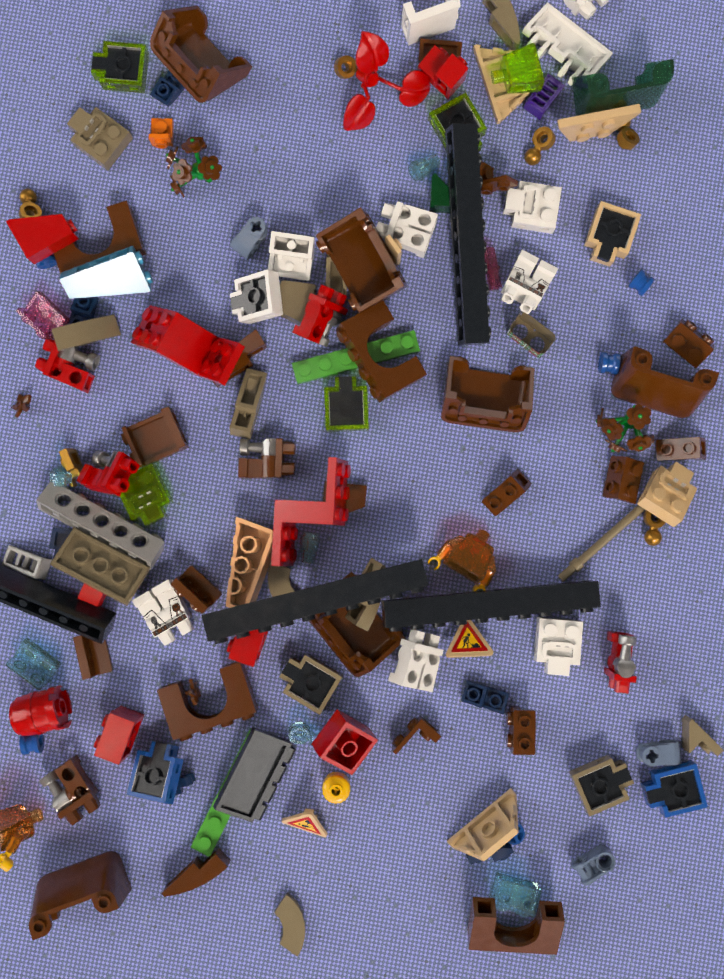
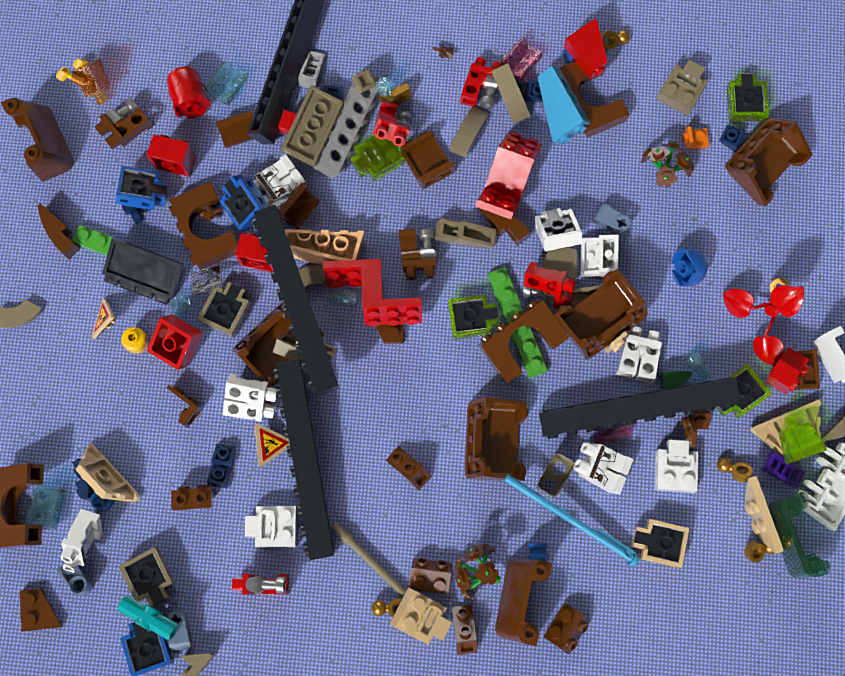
camera: 85 degrees right, 10 degrees down
(31, 744) = (160, 89): blue wheel -> none
(52, 500) = (363, 81): none -> dark tan tile
(126, 386) = (468, 132): none -> dark tan slope
(184, 653) = (242, 200): none -> piece
(273, 702) = (206, 279): none -> piece
(314, 160) = (689, 267): none -> blue cylinder
(469, 557) = (345, 437): clear orange torso -> none
(560, 859) = (80, 537): none -> white hips
(621, 266) = (599, 535): none -> dark azure bar
(625, 907) = (36, 611): none -> reddish brown wing
(641, 282) = (618, 576): blue wheel -> none
(649, 786) = (148, 617): none -> teal piece

